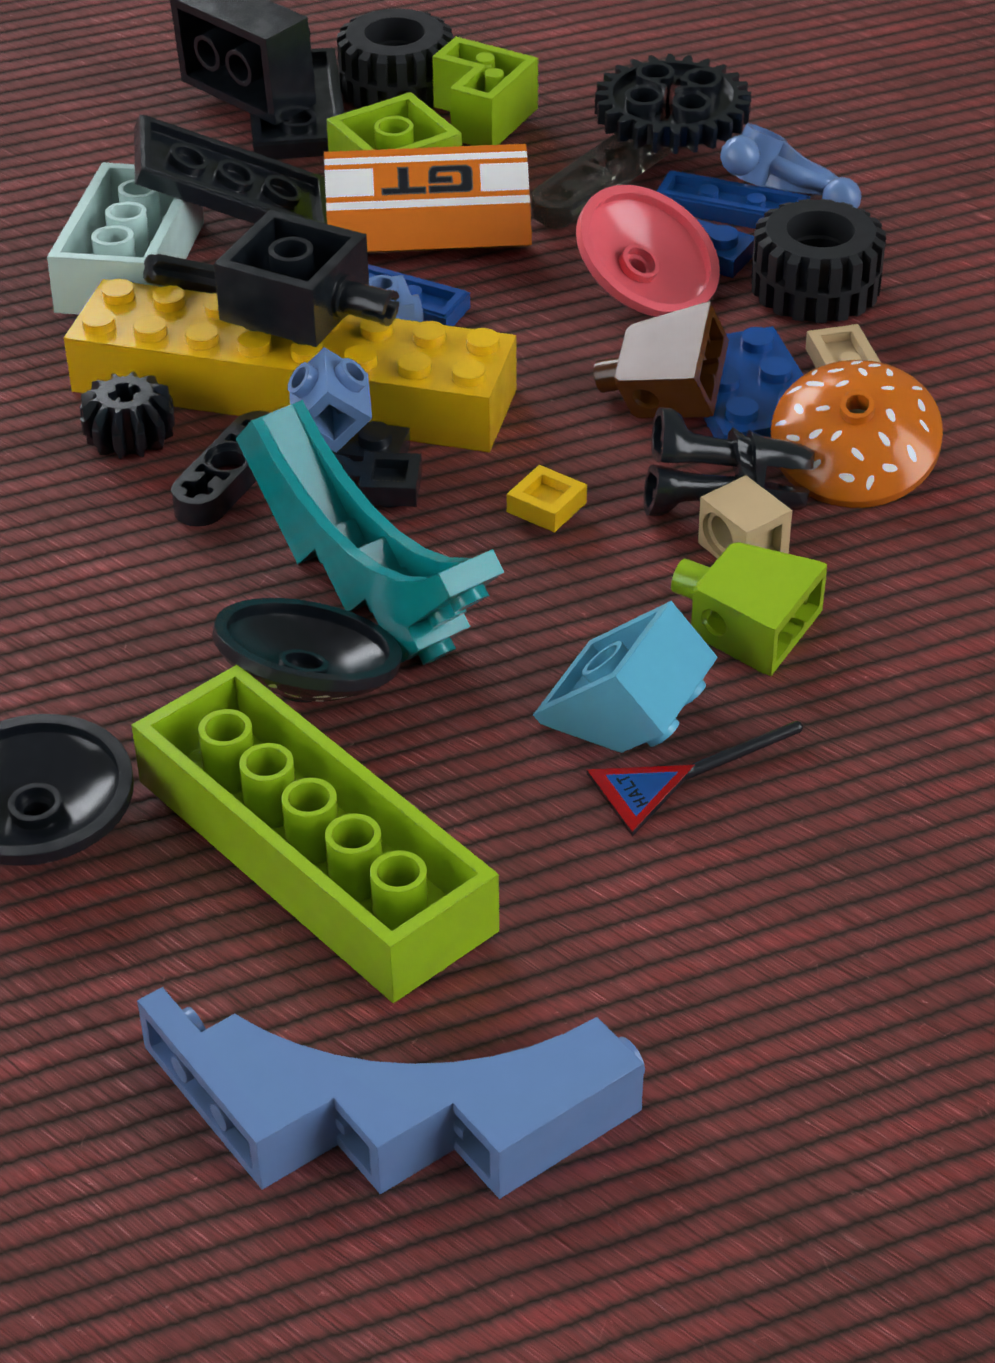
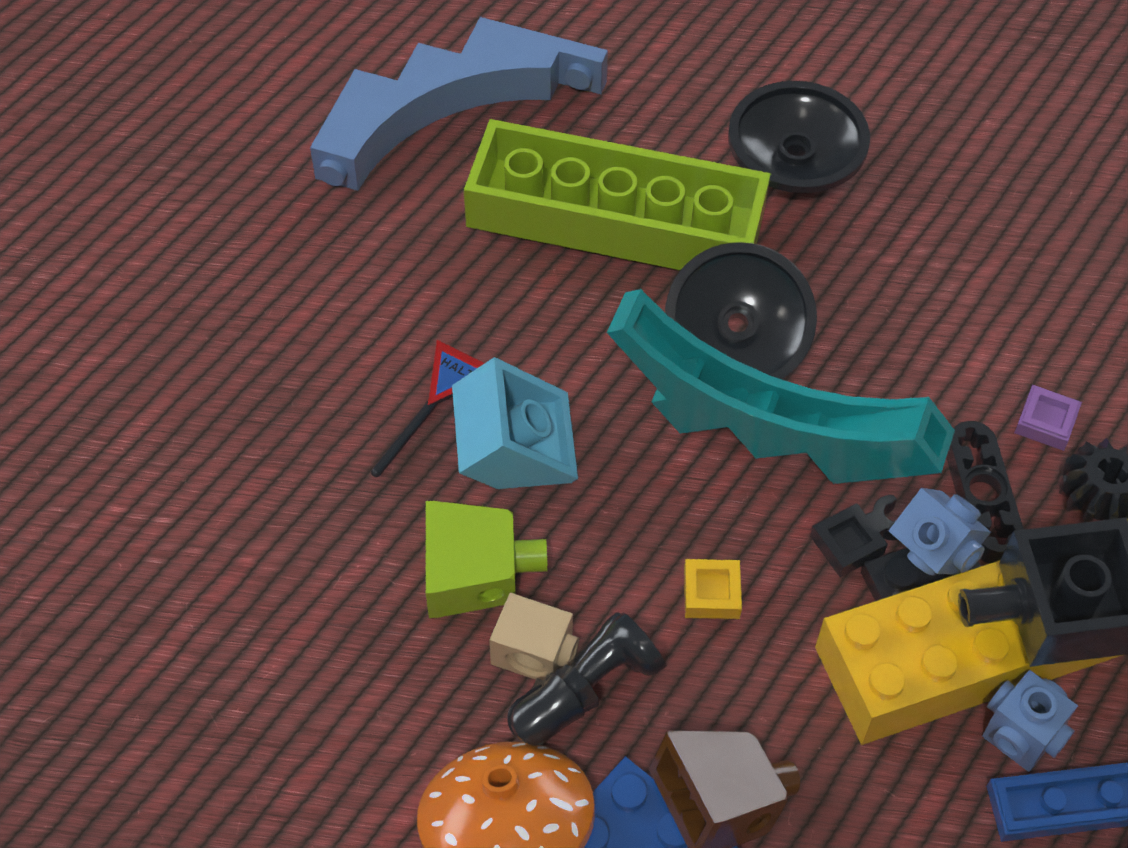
camera: 145 degrees right, 15 degrees up
(100, 492) = (1048, 417): none -> medium lavender tile

